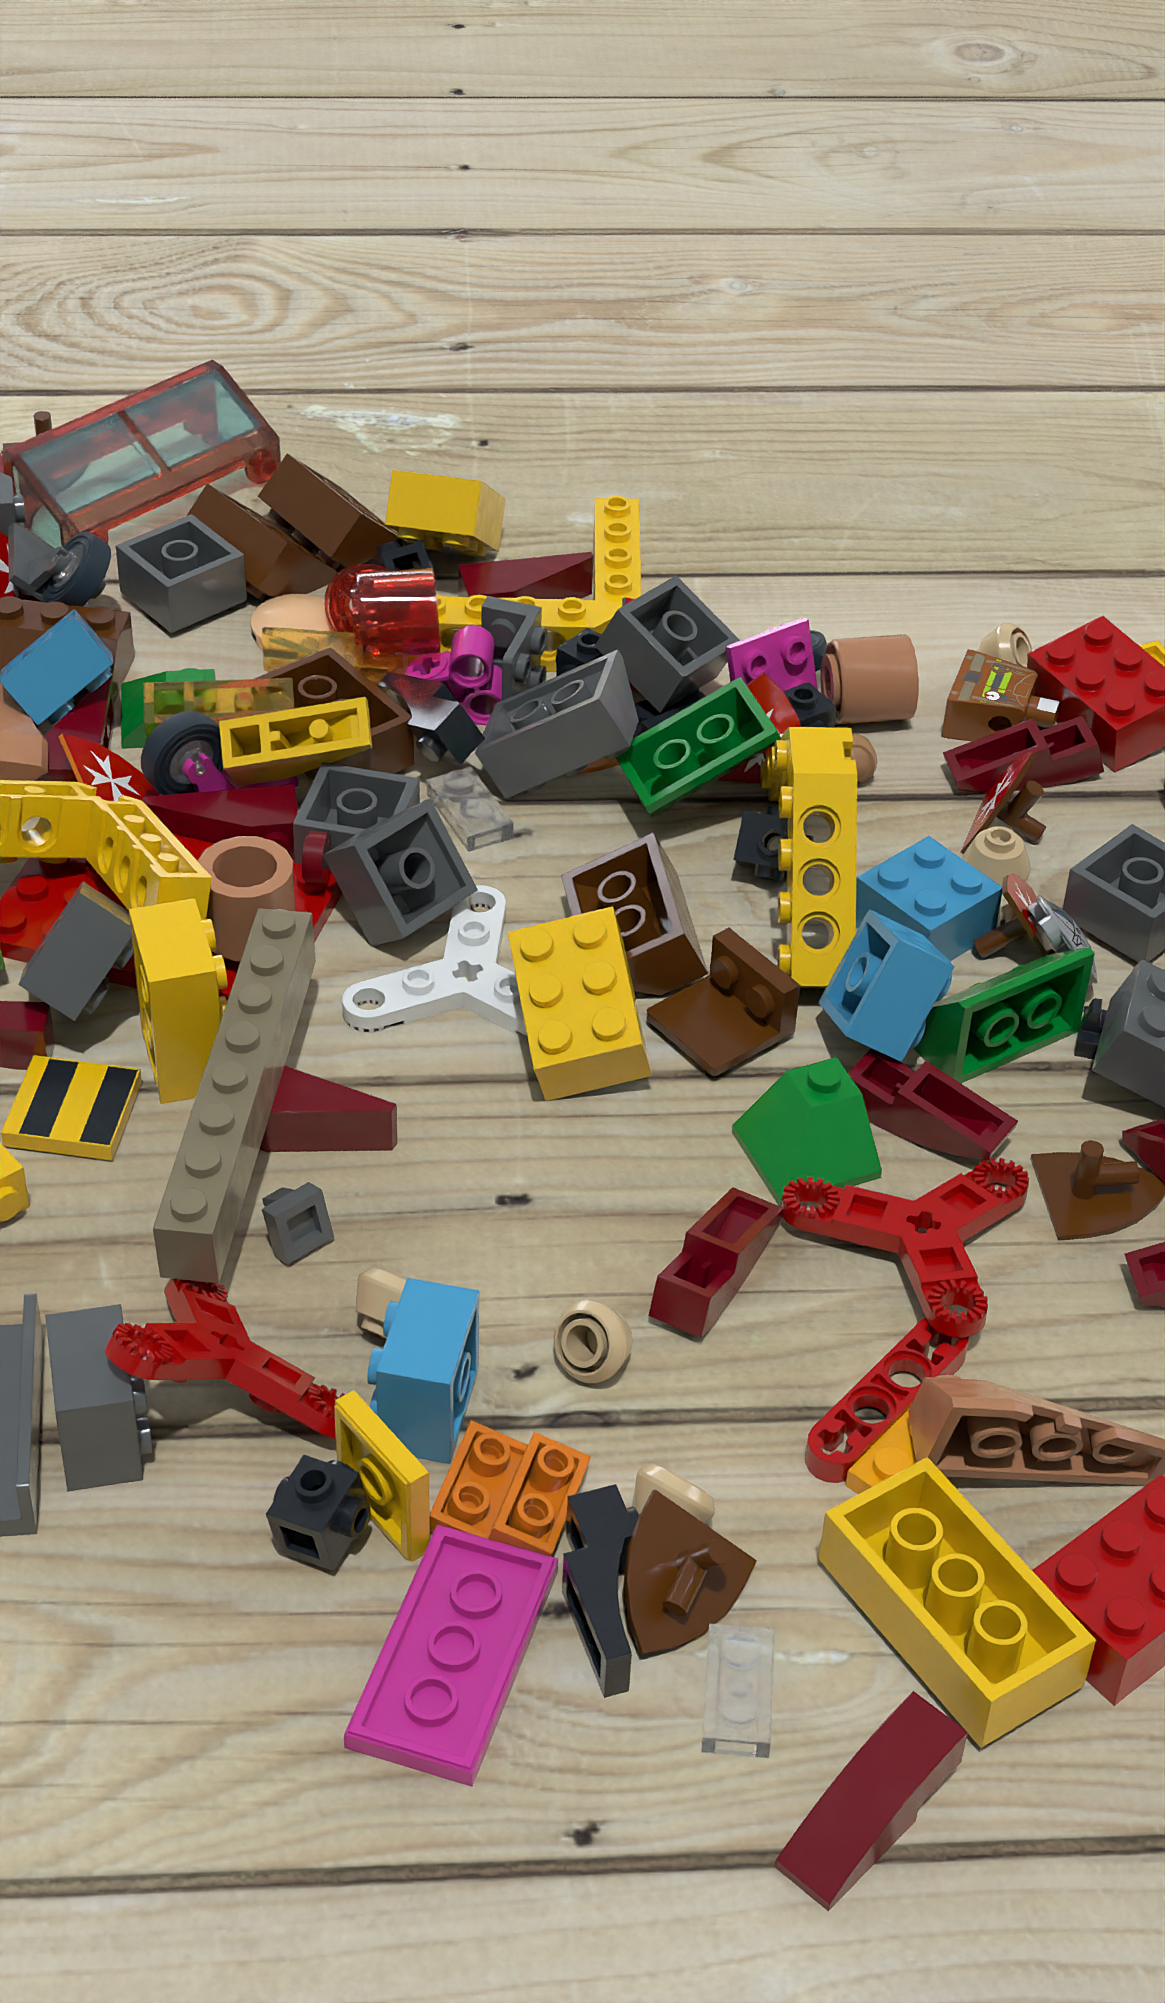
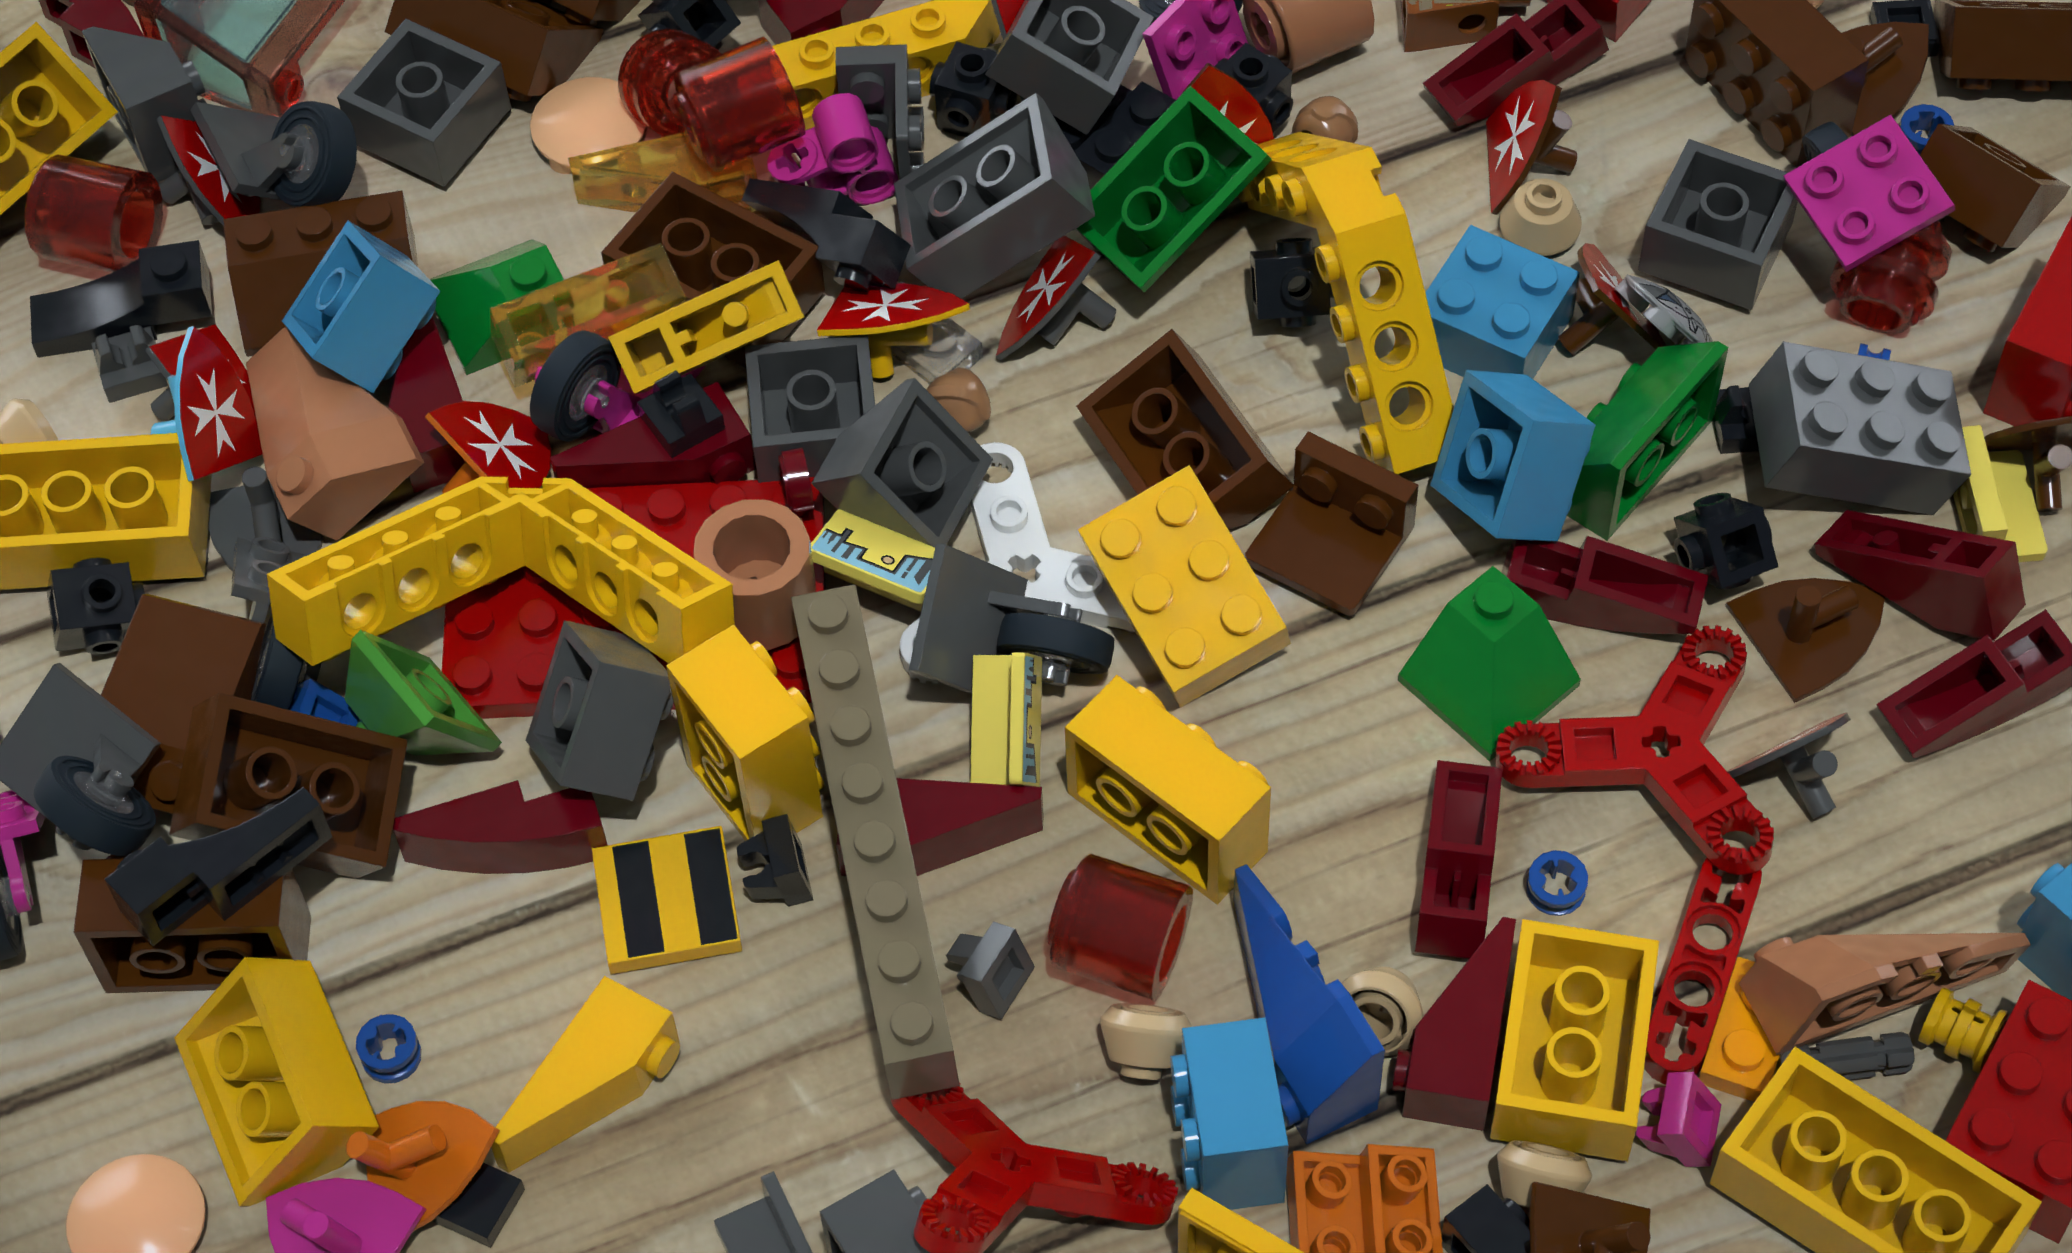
camera: 15 degrees left, 15 degrees up
(167, 1102) = (784, 861): none -> black tile
(252, 790) = (680, 413): none -> black tile
(355, 930) = (874, 558): none -> light yellow panel
(399, 1051) = (1006, 719): none -> light yellow panel
(409, 1216) = (1119, 926): none -> clear red piece
(414, 992) = (984, 611): none -> dark grey plate
(435, 776) = (890, 318): none -> shield
(477, 849) = (962, 397): none -> medium nougat piece
(497, 1134) = (1167, 787): none -> yellow brick
(524, 1337) = (1318, 1037): none -> blue wedge
(597, 812) = (1055, 297): none -> shield
(653, 1381) = (1457, 1040): none -> dark red slope
(745, 1406) = (1575, 1039): none -> yellow brick
(793, 1288) = (1551, 863): none -> blue bush
(810, 1495) = (1686, 1120): none -> dark pink tile
(997, 1505) = (1862, 1056): none -> dark grey axle
(1041, 1258) = (1803, 768): none -> dark grey shield
(1061, 1097) = (1725, 540): none -> black brick
(1085, 1498) = (1962, 1028): none -> yellow bush

